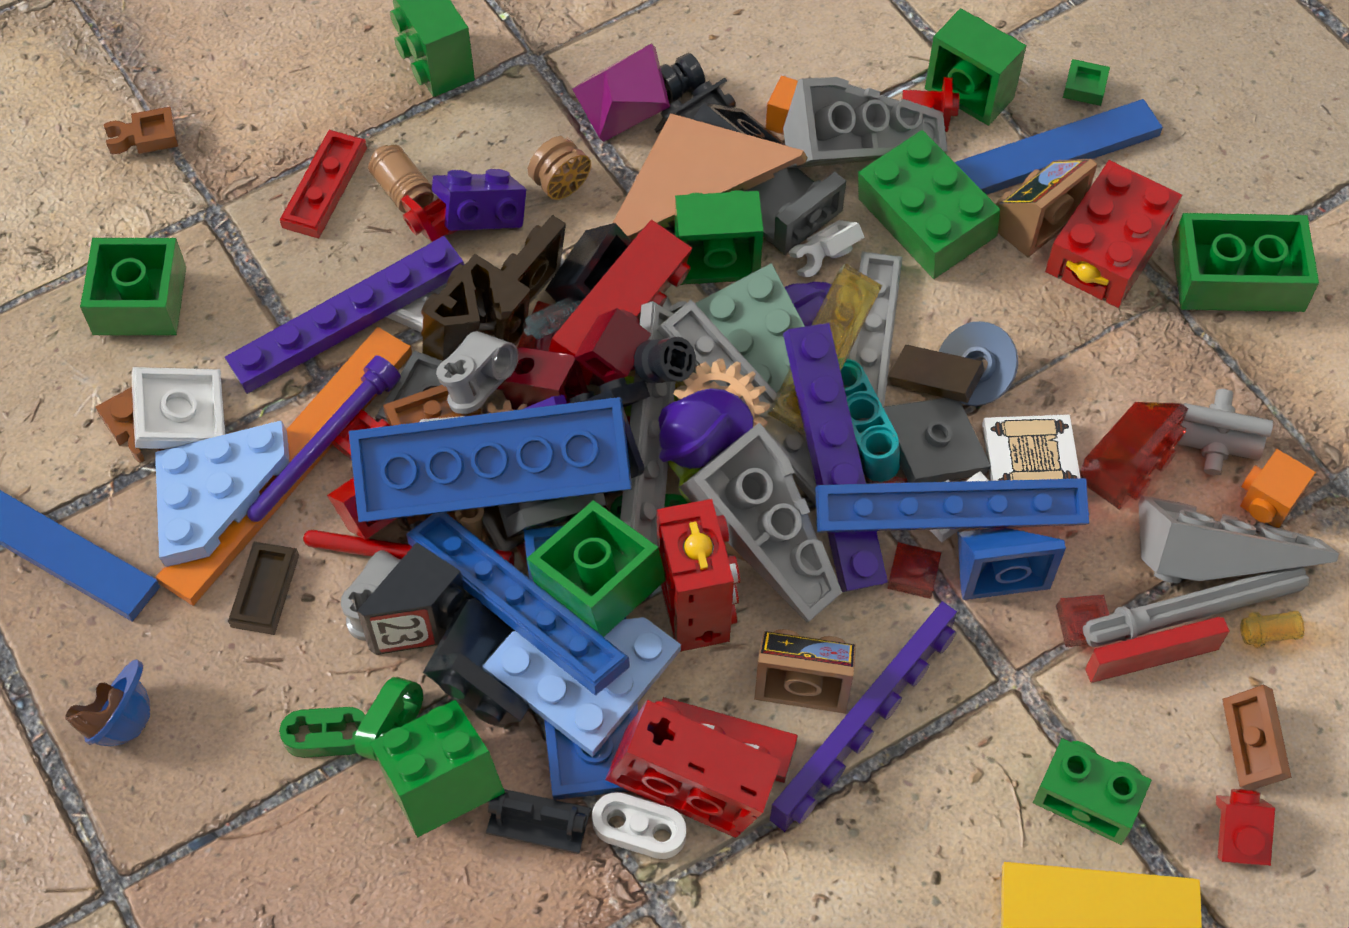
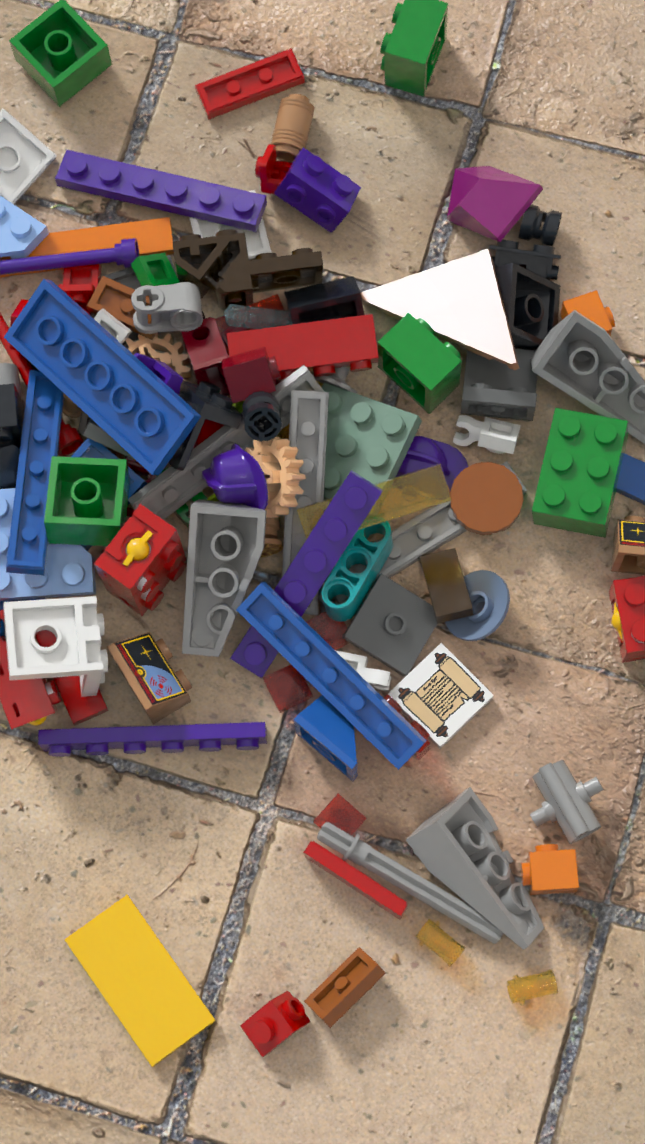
camera: 55 degrees right, 15 degrees up
(421, 366) = (154, 270): none -> green plate
(557, 166) = (388, 215): medium nougat wheel -> none
(719, 694) = (77, 644): none -> white bracket
(902, 283) = (486, 498): none -> dark orange tile
(1092, 790) = (211, 912): green brick -> none
(1133, 449) = (492, 757): clear red slope -> none

